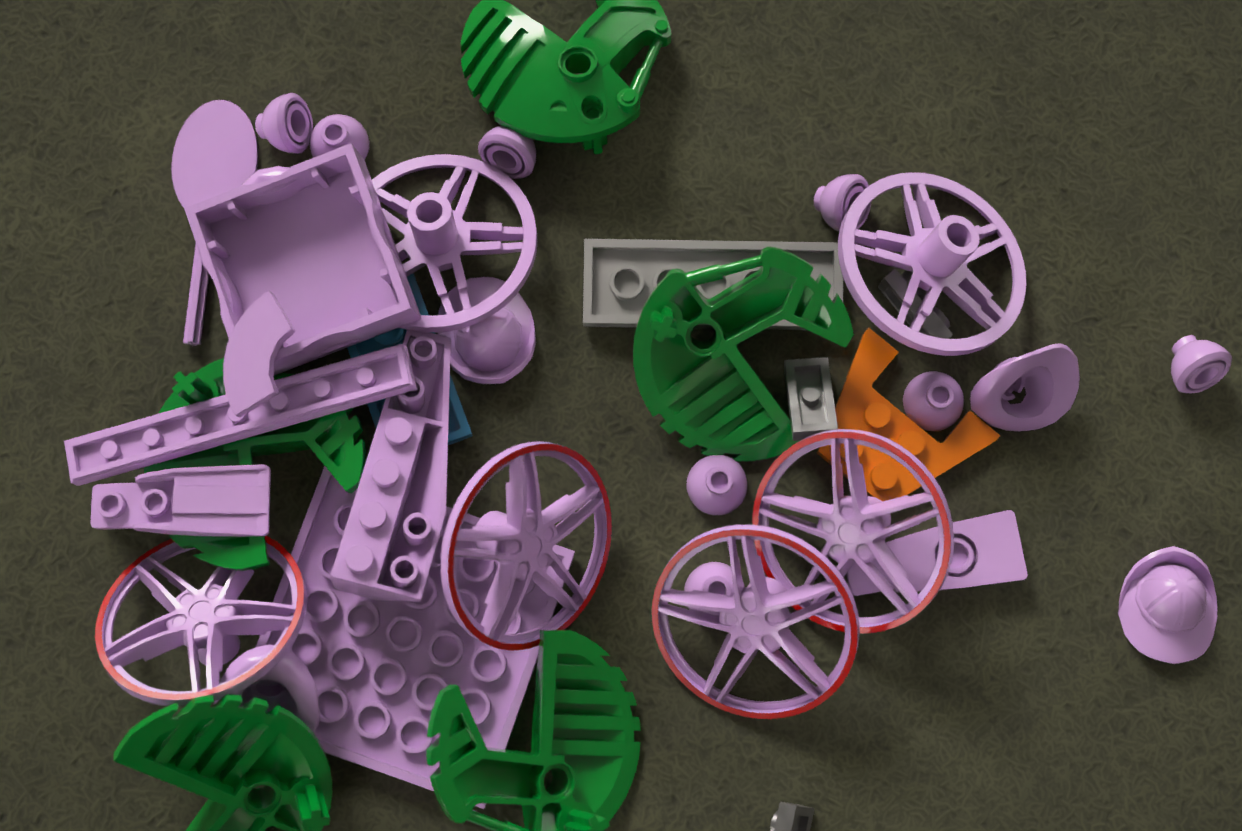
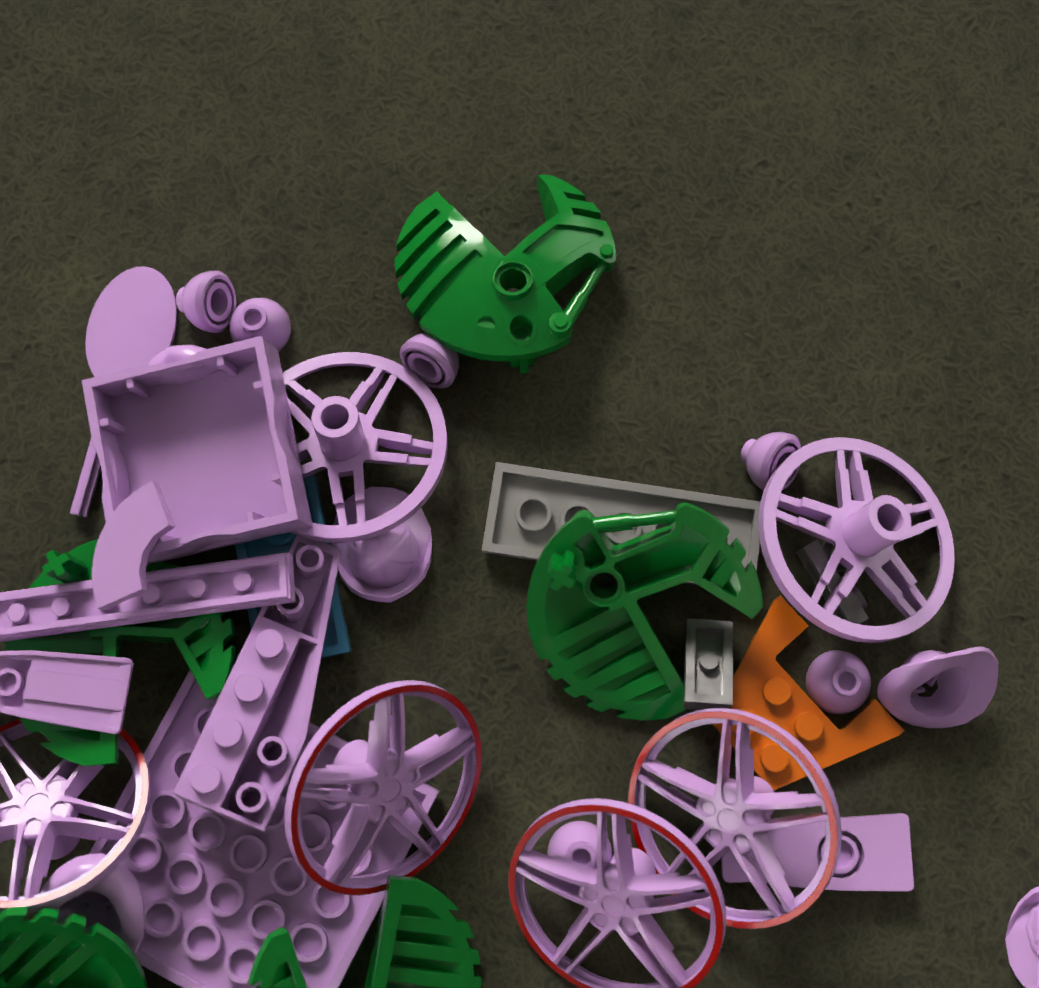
camera: 15 degrees right, 0 degrees up
(716, 484) = (598, 739): lavender brick -> none

